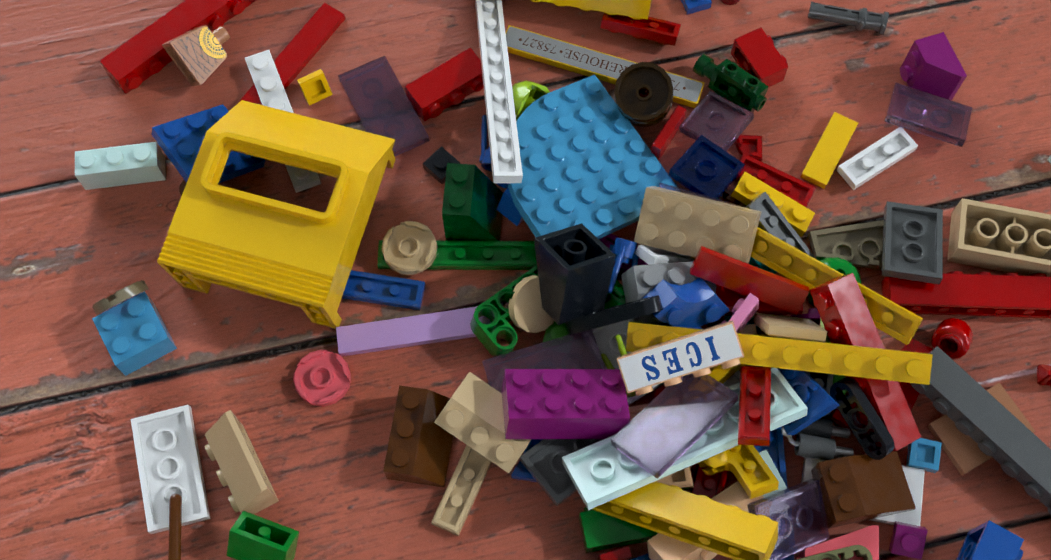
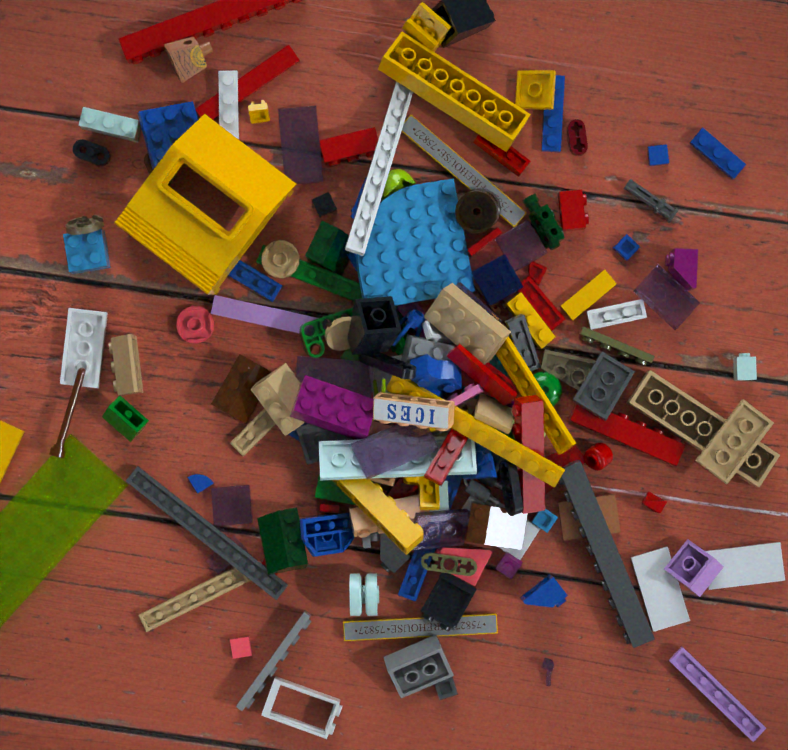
camera: 20 degrees right, 20 degrees up
(107, 209) = (91, 153): none -> black plate
(846, 80) = (626, 247): none -> blue tile
(899, 192) = (623, 349): none -> olive plate

